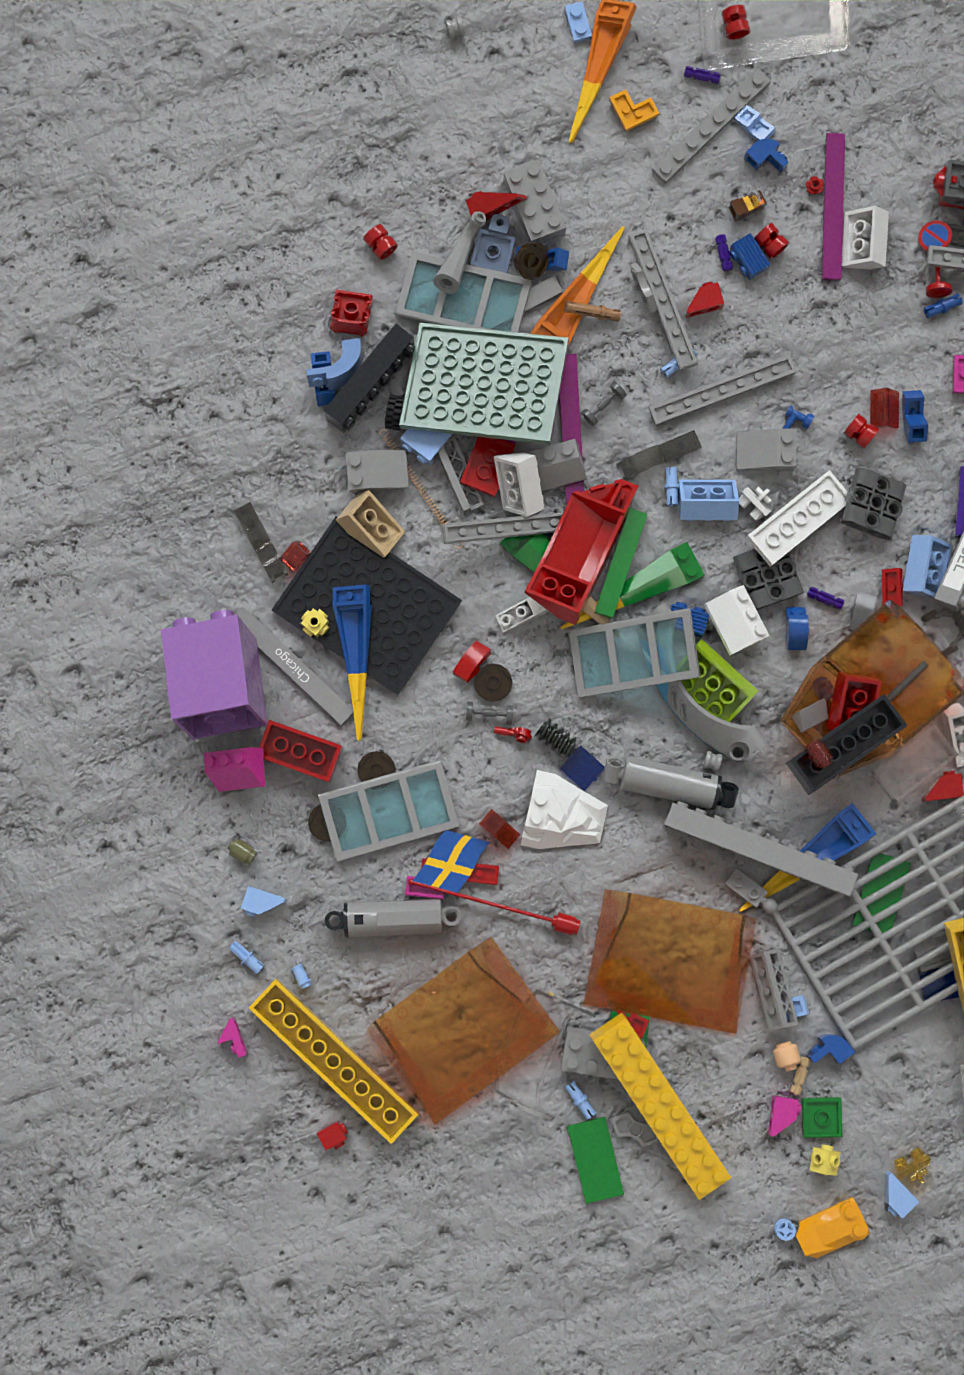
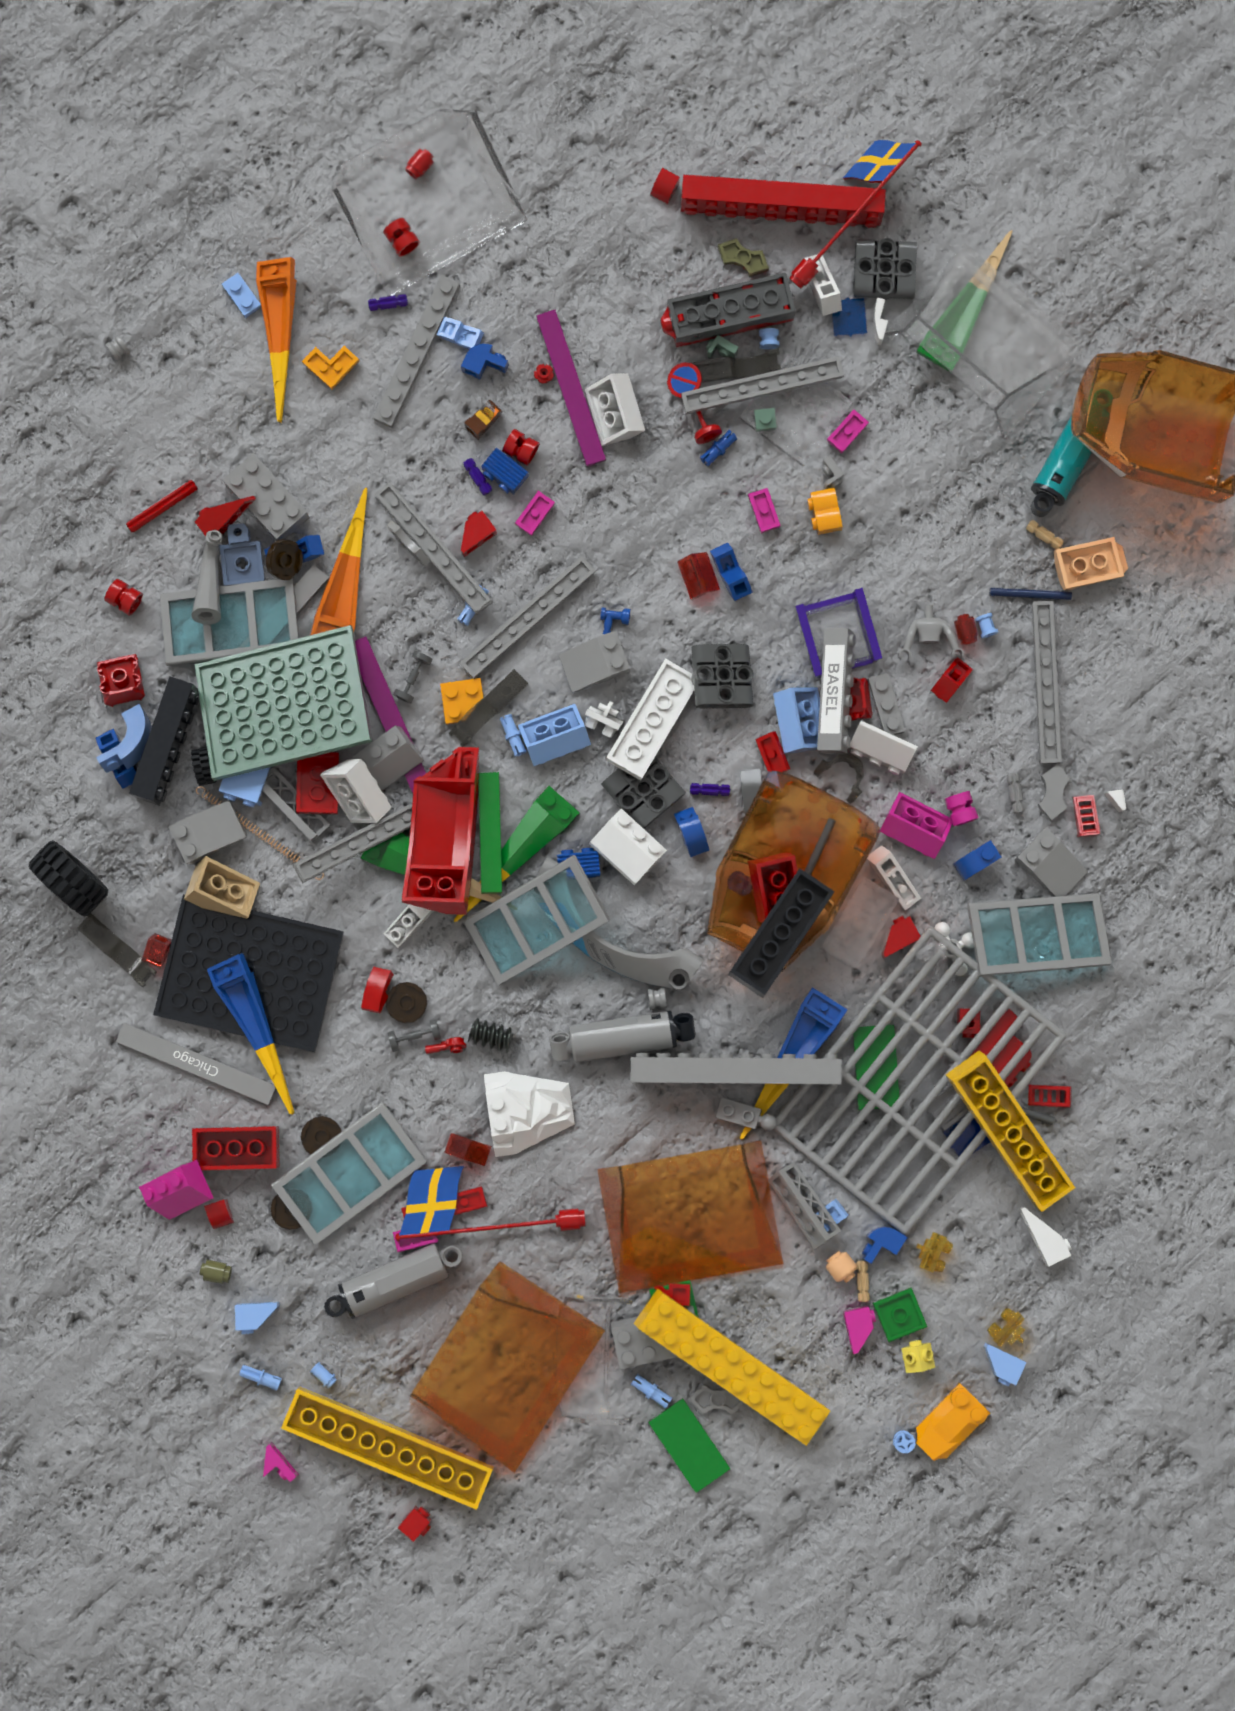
camera: 20 degrees left, 0 degrees up
(213, 675) = (118, 1106): medium lavender brick -> none
(243, 464) = (68, 878): none -> black tyre
(263, 802) = (219, 1214): none -> red brick
(318, 629) = (210, 1012): light yellow brick -> none
(441, 177) = (161, 506): none -> red axle
(582, 768) = (529, 1055): clear blue piece -> none
(599, 312) = (373, 585): medium nougat pin -> none
(637, 437) = (459, 698): none -> light orange plate
(720, 687) = (636, 921): lime slope -> none
(762, 302) = (534, 513): none -> dark pink plate
(811, 715) = (737, 915): light grey slope -> none
(819, 754) = (756, 954): clear red brick -> none
(861, 431) = (682, 607): red wheel -> none
(870, 1073) = (931, 1252): none -> clear yellow hips

